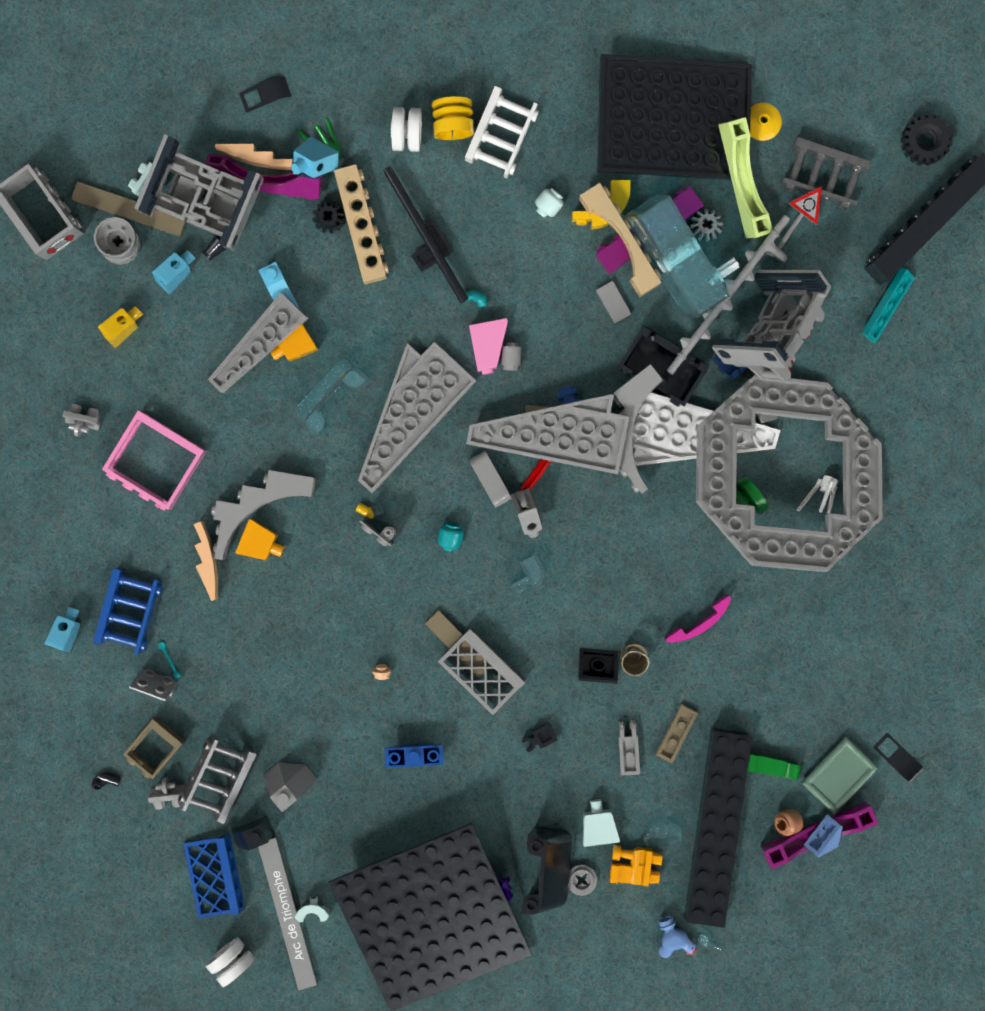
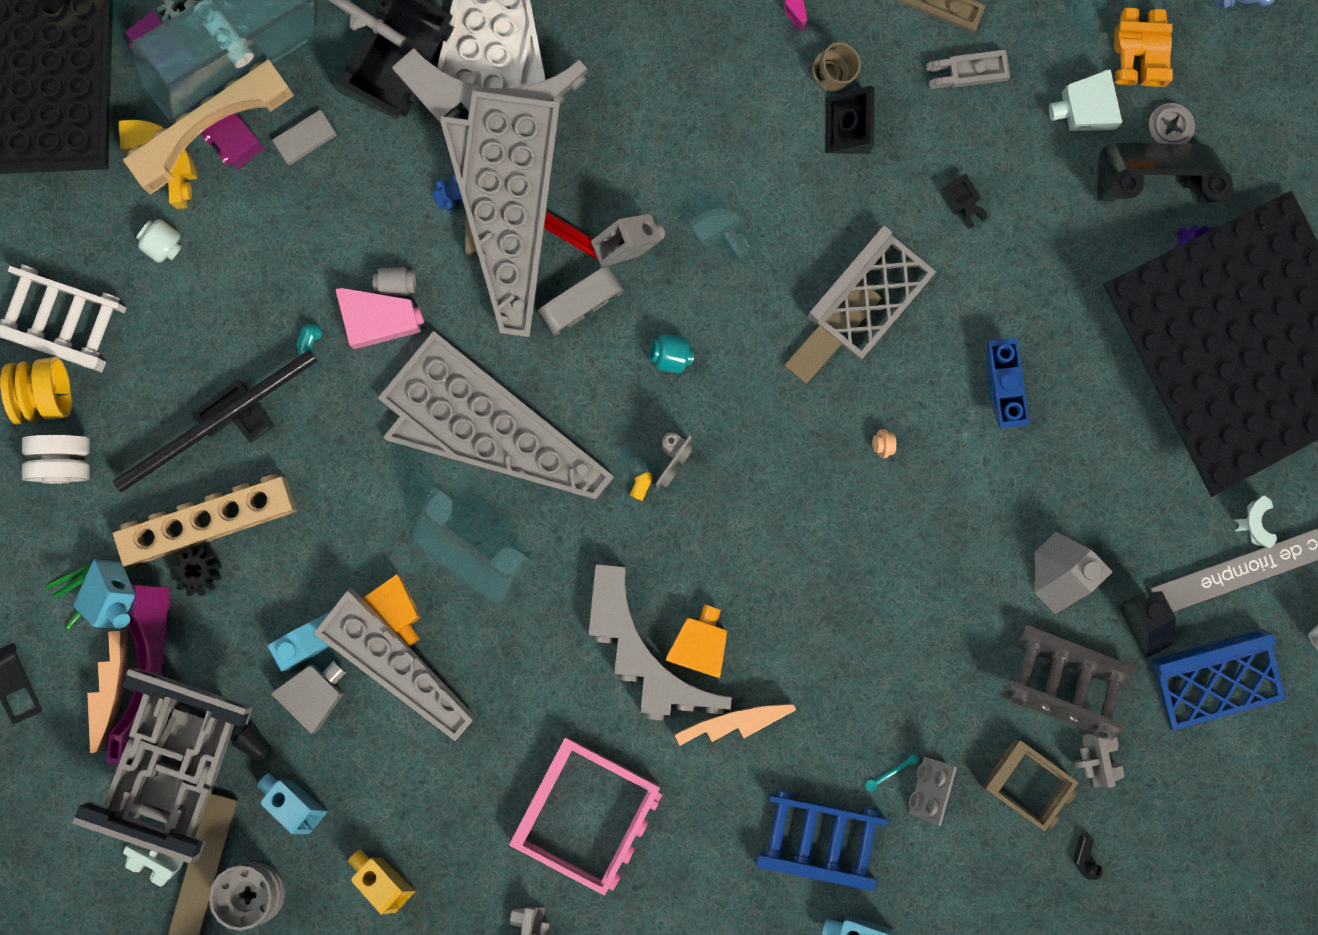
camera: 90 degrees left, 5 degrees down
(243, 288) = (312, 694): none -> light grey torso

